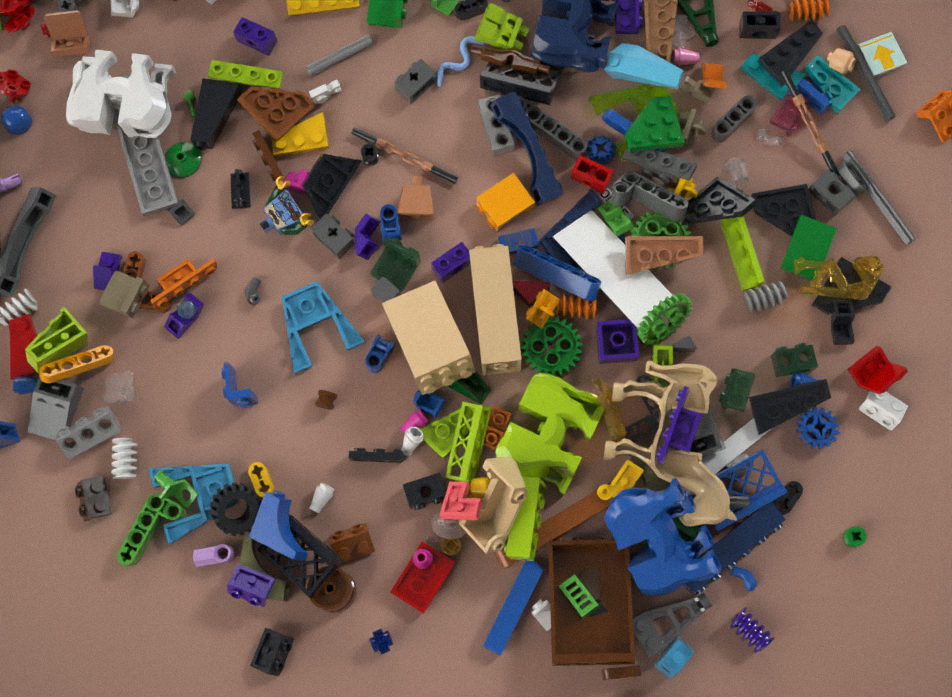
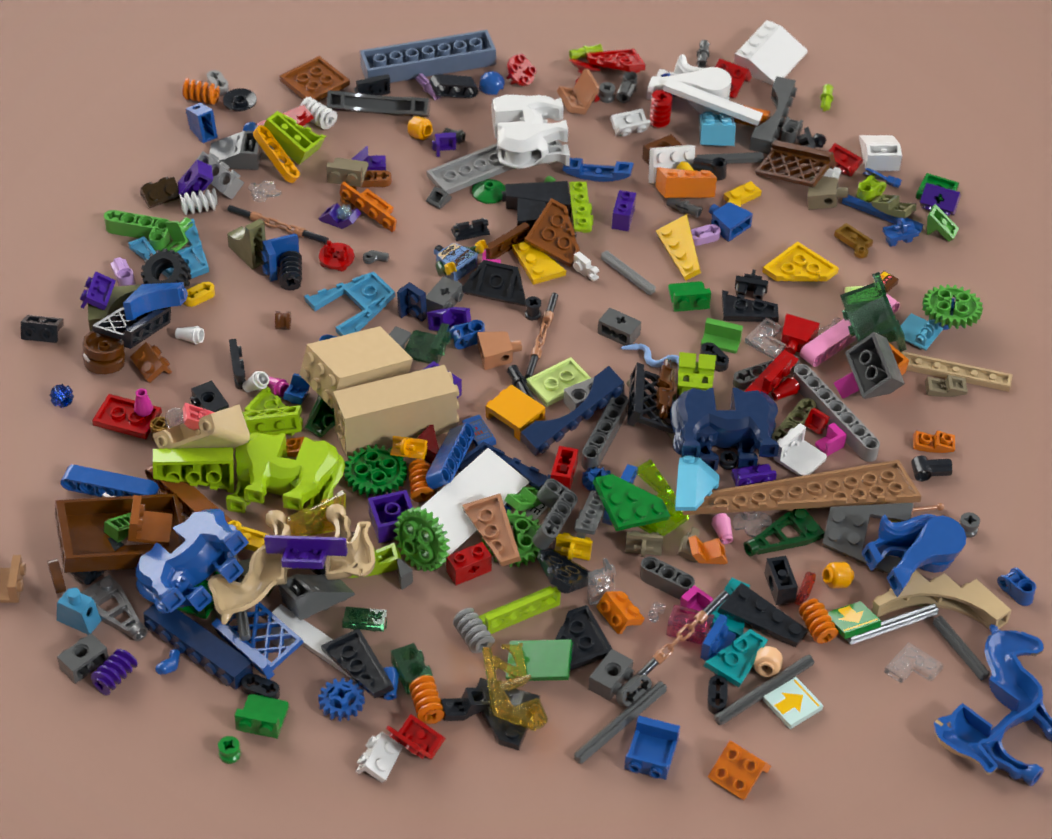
camera: 70 degrees right, 30 degrees down
(16, 158) = (453, 86): none -> black beam
(70, 207) = (419, 128): none -> light orange head
(89, 175) = (460, 135): none -> pearl dark grey pin
(96, 457) = (196, 178): none -> dark purple brick
(99, 186) = (444, 142): none -> dark purple bracket
(189, 42) = (598, 172): none -> blue slope
(194, 361) = (301, 232): none -> piece
(208, 417) = (248, 243): none -> olive arch
(237, 126) = (529, 211): none -> black torso
(246, 322) = (336, 256): none -> red plate
(255, 380) = (290, 270): none -> black piece
(340, 264) = (412, 301): none -> dark blue bracket
(469, 154) = (550, 383): none -> yellowish green tile
(469, 189) = (518, 380): none -> black pin
(598, 572) = (148, 525): none -> dark orange bracket
(602, 25) = (728, 465): none -> black bush
(685, 281) = (469, 563): none -> red brick
(738, 664) = (82, 658): none -> dark grey brick
(763, 167) = (619, 611): none -> orange bracket
(766, 103) = (695, 599): none -> dark pink panel
(823, 501) = (261, 716): none -> green bracket
(834, 353) = (426, 700): none -> orange piece
(863, 112) = (713, 694): none -> black beam
(913, 180) = (652, 747): none -> blue panel

